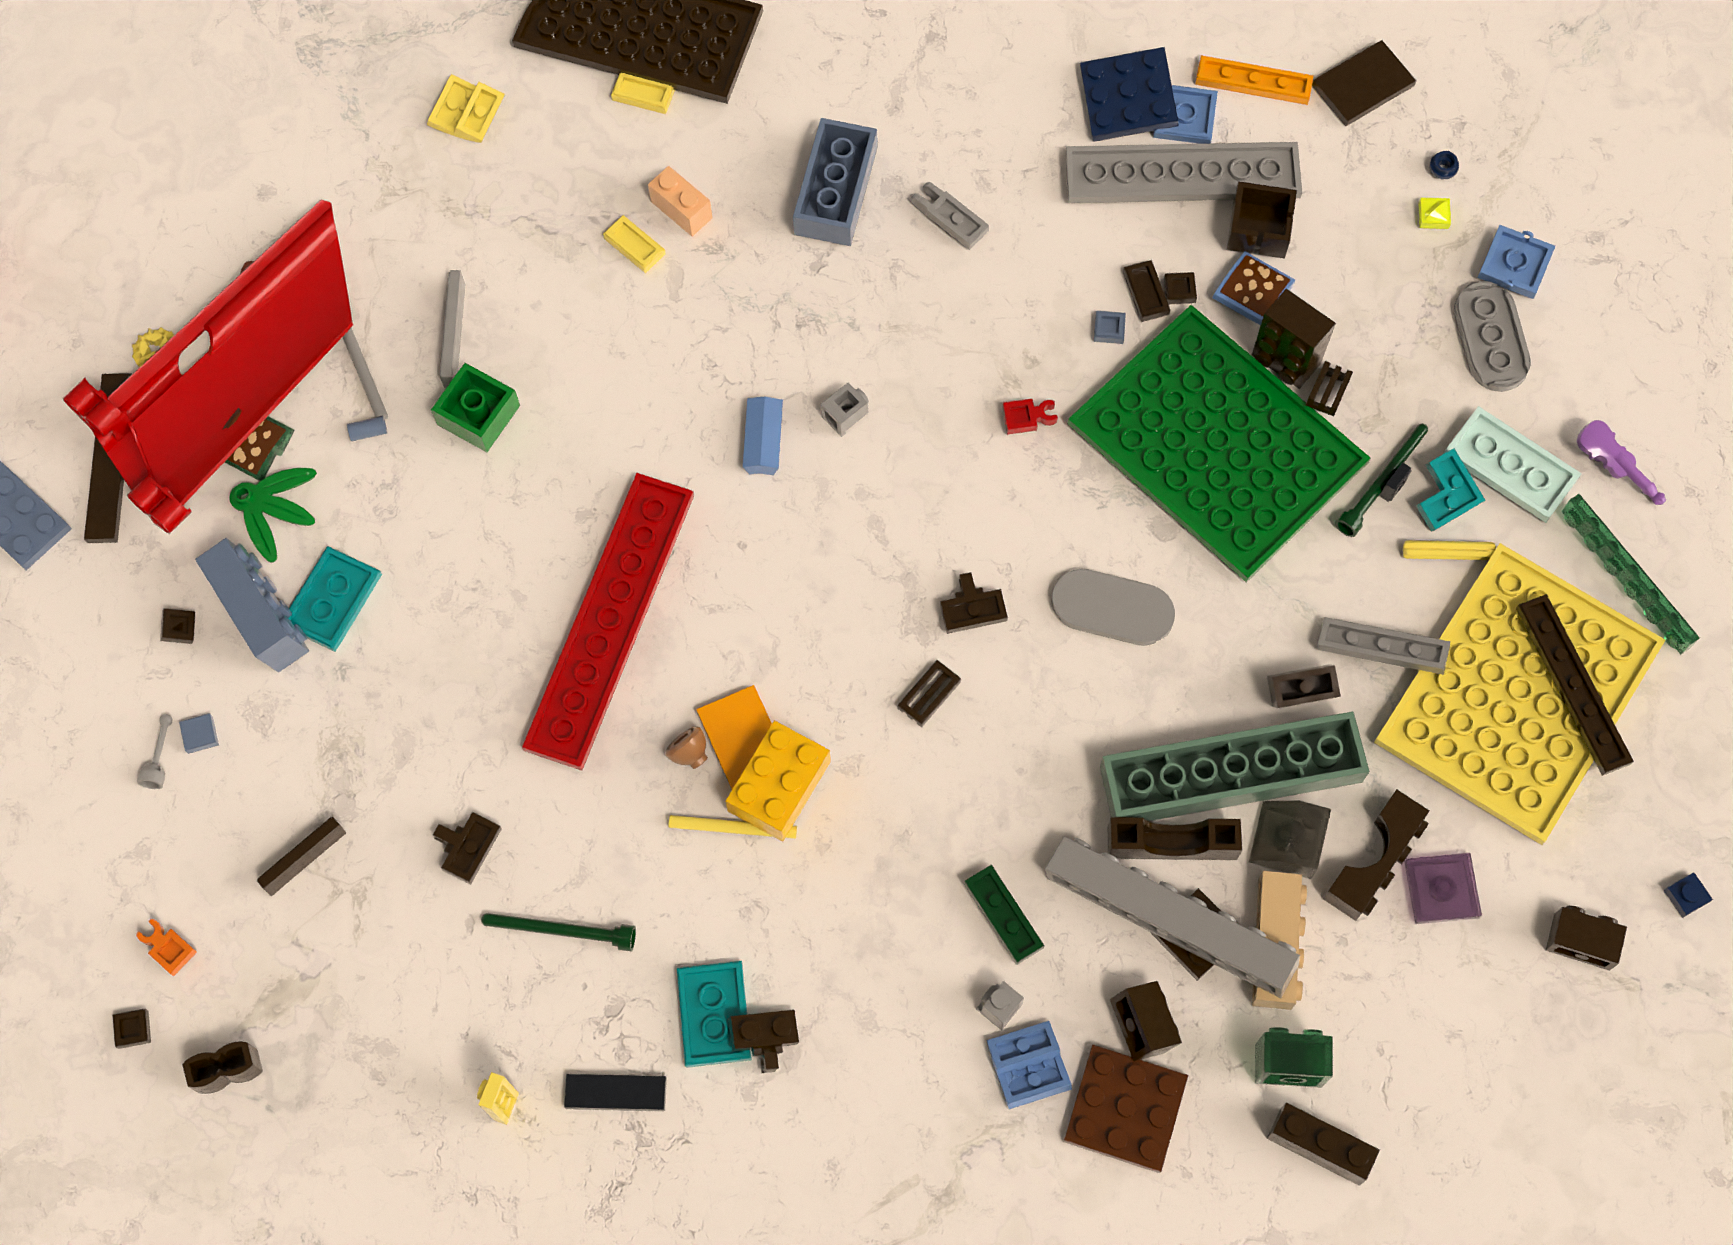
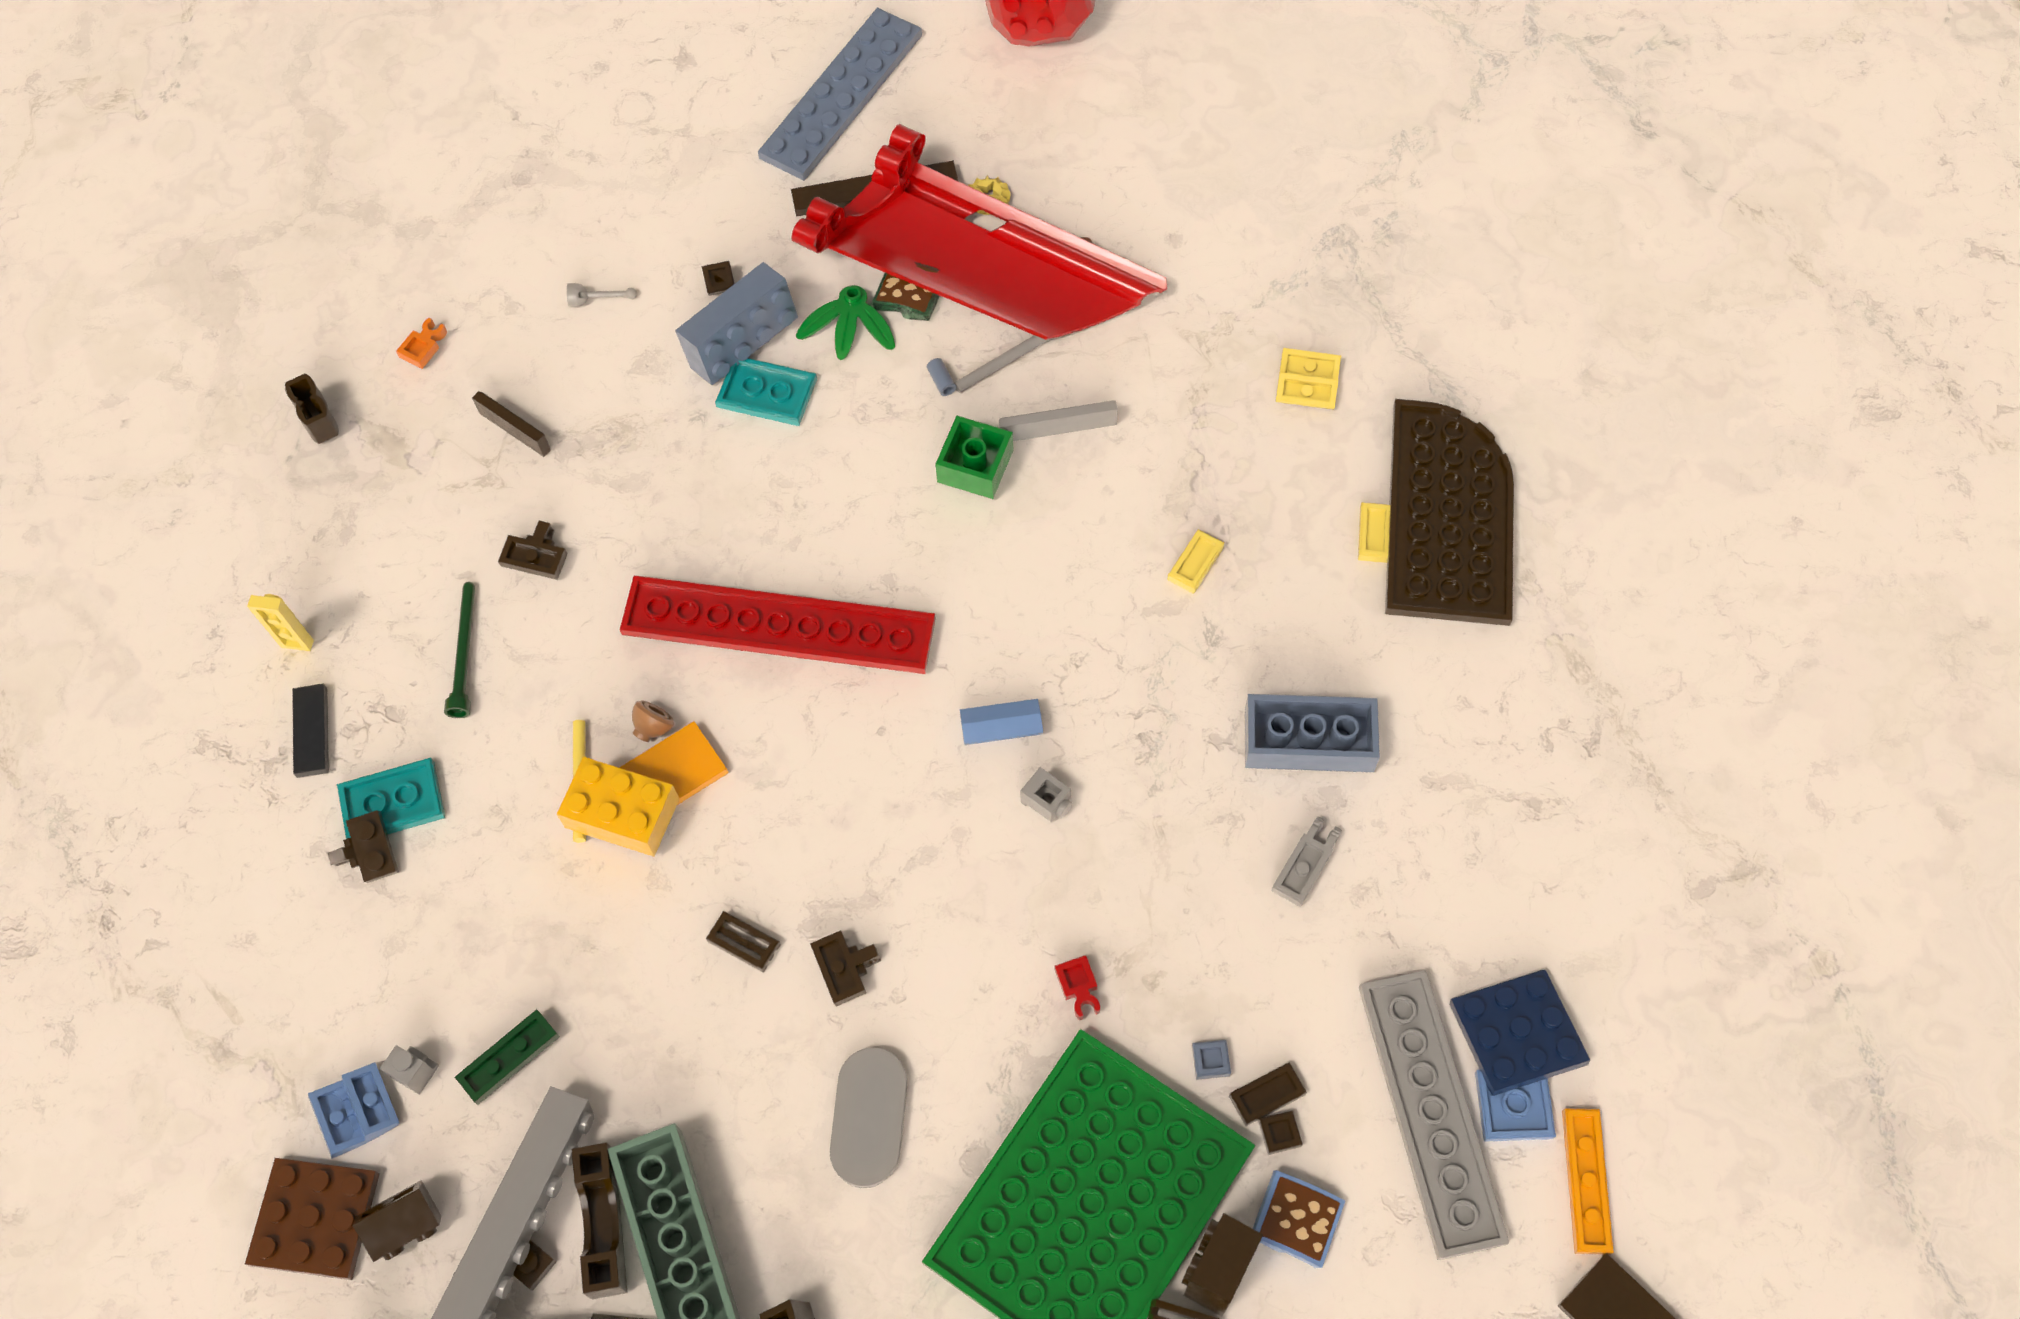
camera: 80 degrees right, 5 degrees down
(131, 1028) = (351, 339): dark brown tile -> none
(198, 733) = (621, 320): sand blue tile -> none
(680, 201) = (1250, 589): light nougat brick -> none
(1261, 219) = (1385, 1211): dark brown piece -> none

